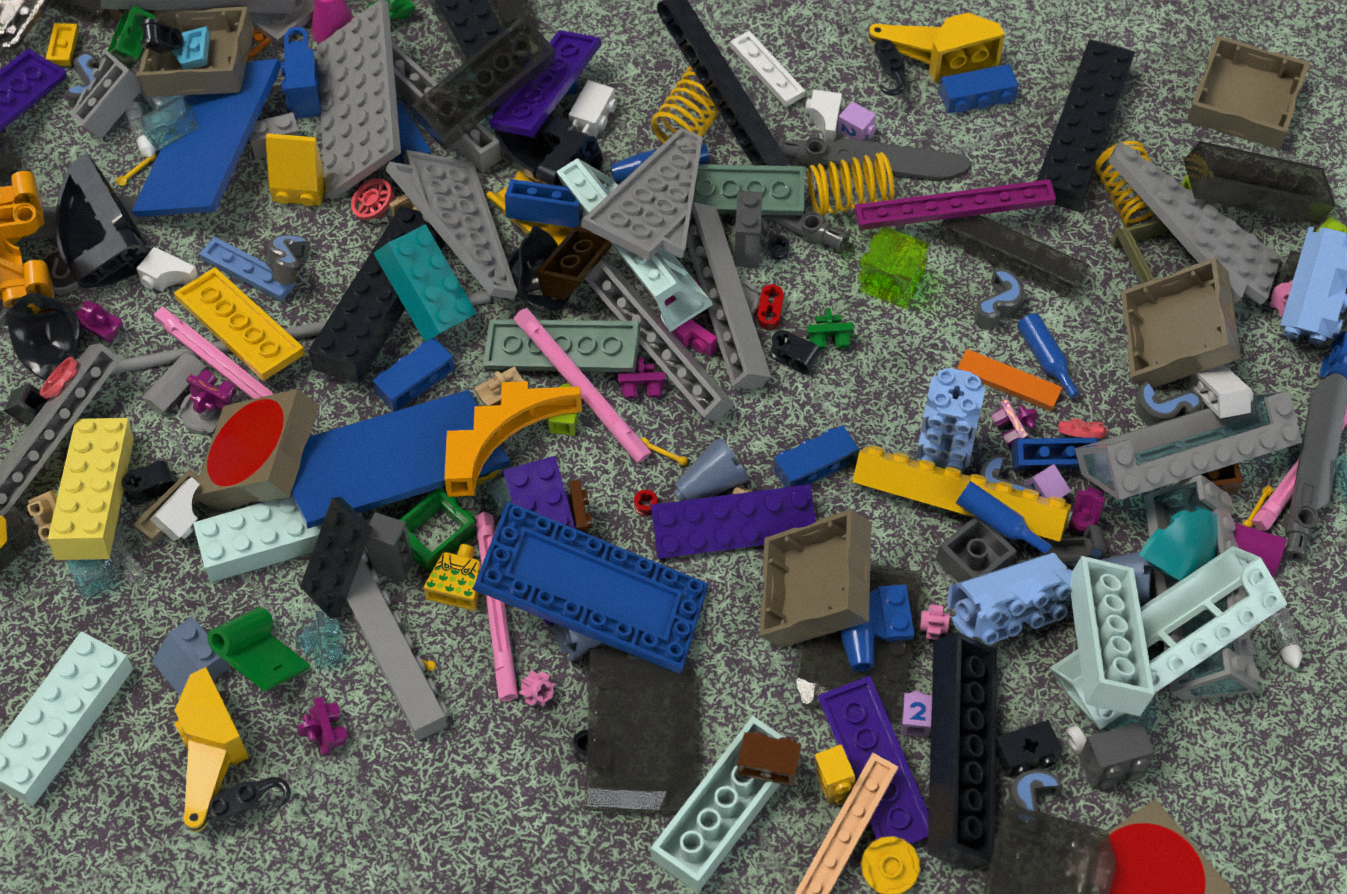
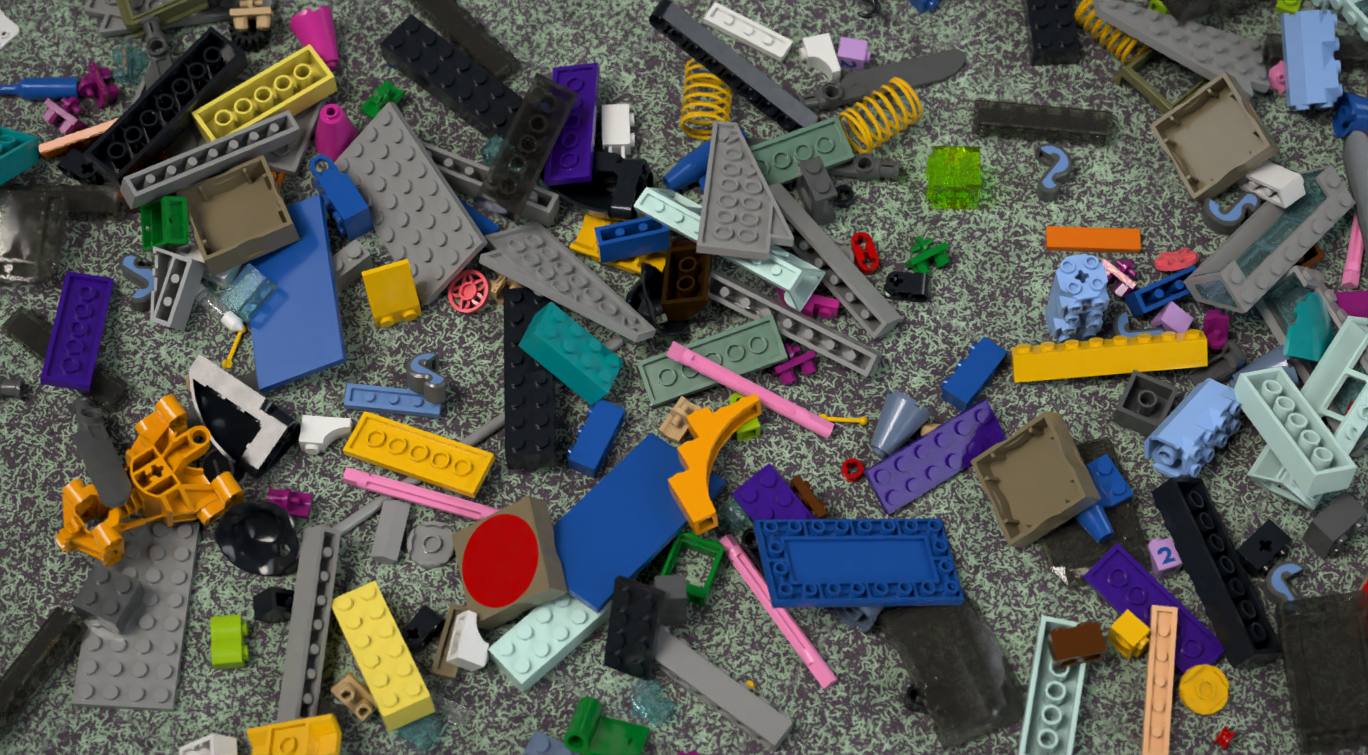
camera: 25 degrees left, 5 degrees up
(58, 377) = (295, 570): coral wheel -> none
(62, 44) = (93, 253): yellow plate -> none
(160, 36) = (204, 215): black piece -> none
(195, 49) = (228, 214): medium azure wing -> none
(206, 395) = (431, 531): magenta hips -> none
(454, 579) = (734, 602): yellow torso -> none
(537, 688) = (851, 666): bright pink gear -> none
(934, 622) = (1139, 474): bright pink gear -> none
(954, 204) = (978, 101): magenta plate -> none
(999, 516) = (1152, 365): blue piece -> none
(1046, 351) = (1113, 202): blue piece -> none
(1076, 738) = (1295, 525): white tile -> none
(1266, 492) = (1341, 253): yellow hinge -> none

